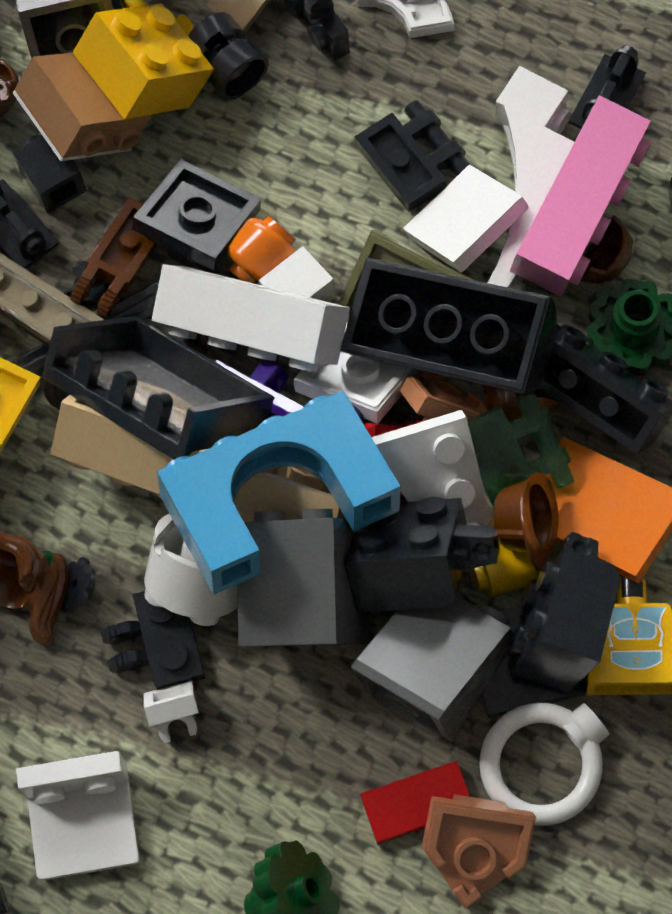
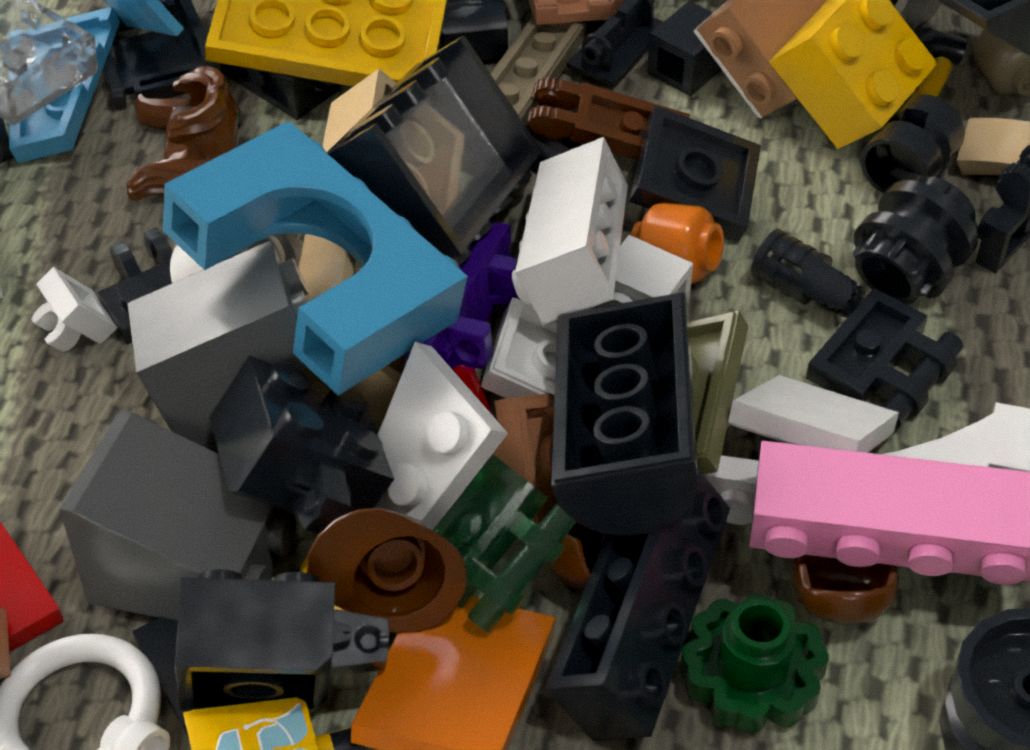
camera: 65 degrees right, 20 degrees down
(321, 175) = (818, 279): none -> black hinge
(327, 96) = (916, 239): none -> black piece

